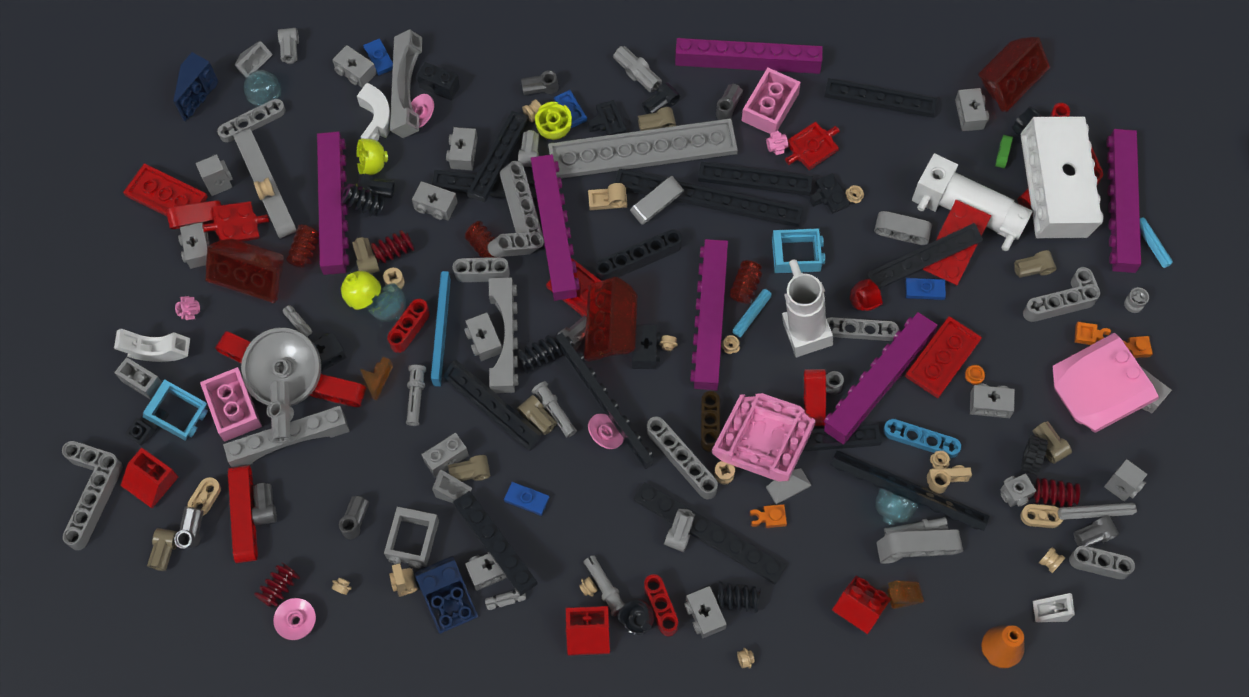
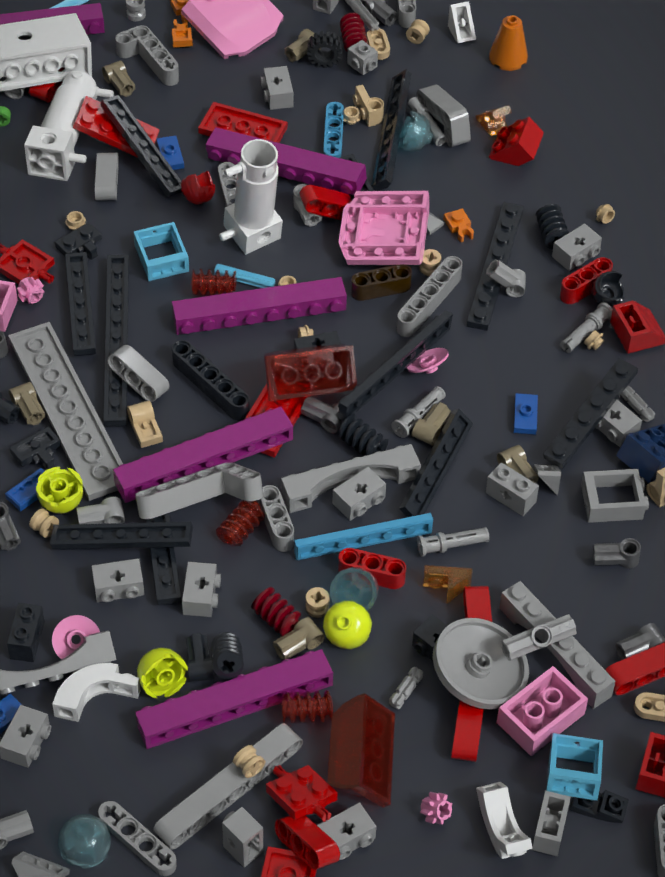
camera: 110 degrees left, 15 degrees down
(974, 374) = (253, 104): orange plate -> none

